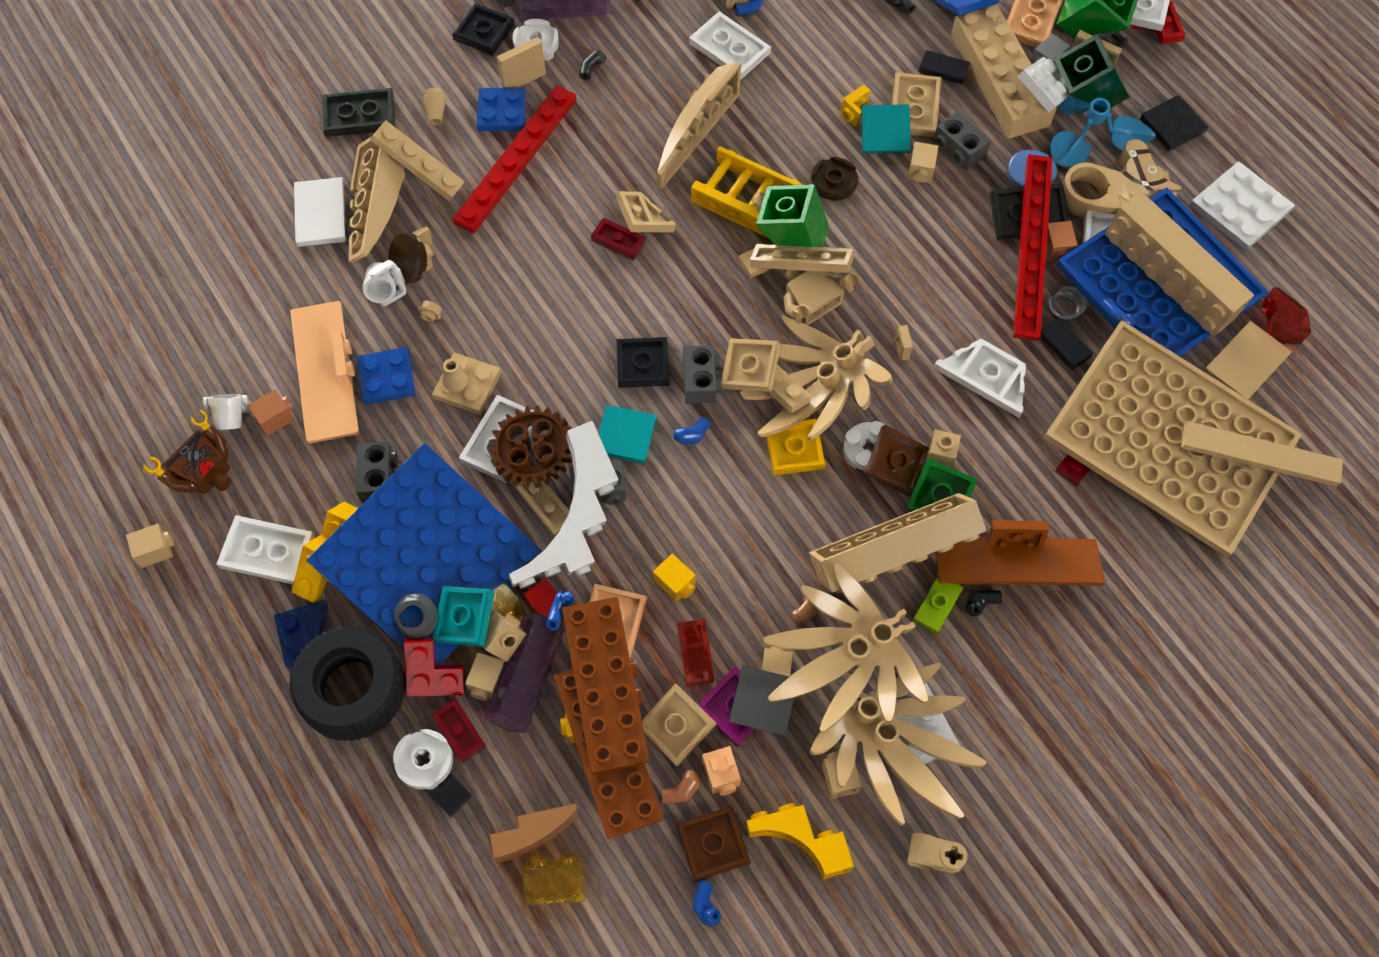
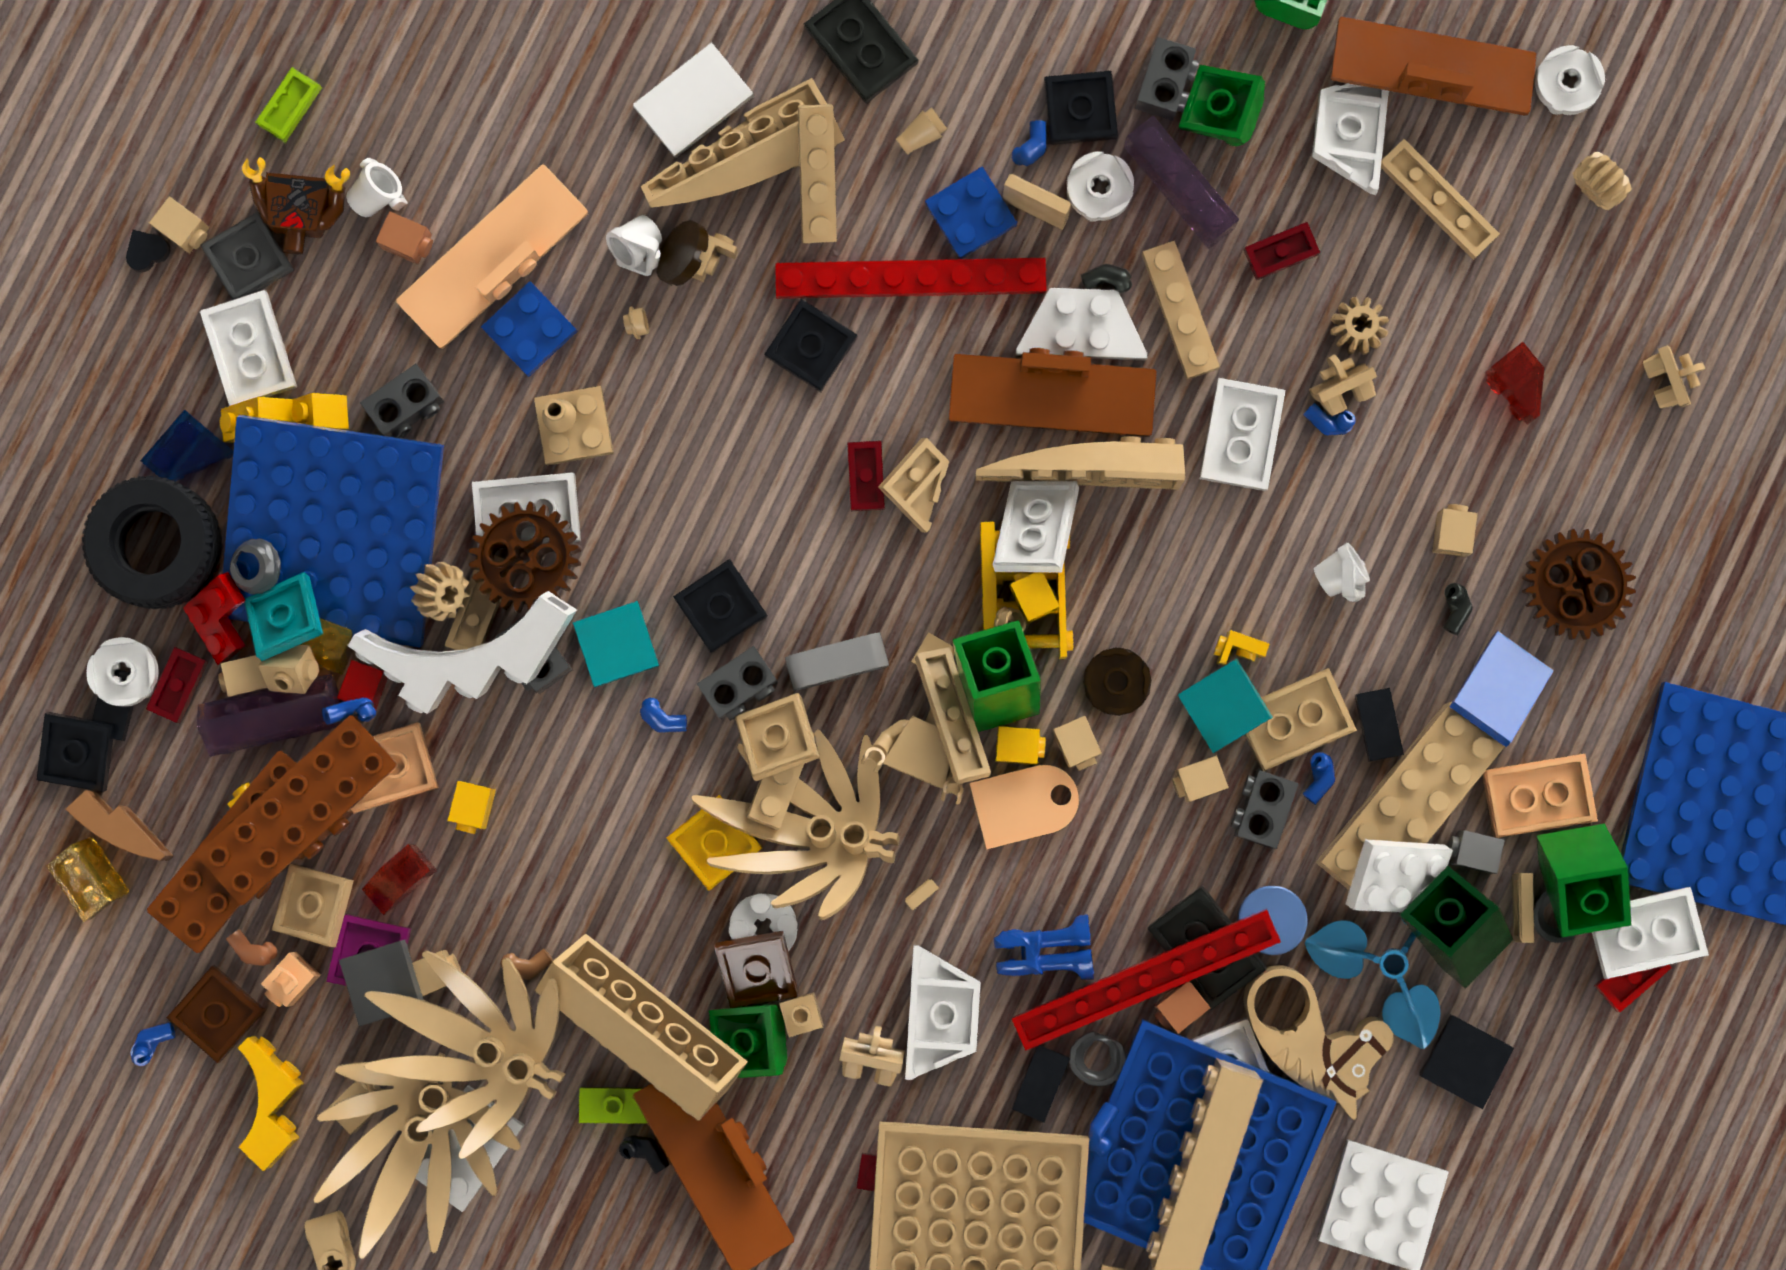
camera: 65 degrees right, 20 degrees up
(130, 435) = (288, 105): none -> lime plate
(148, 580) = (146, 250): none -> black tile
(204, 518) = (247, 257): none -> dark grey tile
(456, 832) = (75, 751): none -> black tile
(486, 57) = (1034, 147): none -> blue arm
(516, 229) = (811, 345): none -> black tile
(517, 509) = (440, 591): none -> tan gear
(610, 90) = (1084, 322): none -> white wing
(636, 40) = (1180, 310): none -> tan plate
(636, 122) = (1053, 393): none -> dark orange bracket
(714, 159) = (1036, 526): none -> white tile
(723, 313) = (836, 661): none -> light grey beam
(754, 178) = (1033, 595): none -> yellow brick
(843, 237) = (1019, 745): none -> yellow brick
(845, 33) = (1343, 574): none -> white piece
(860, 212) = (1077, 743): none -> tan brick
(880, 264) = (1021, 804): none -> light nougat tile
(955, 104) = (1323, 777): none -> blue arm
(973, 300) = (1031, 943): none -> blue piece
(988, 434) = (874, 1053): none -> tan hips

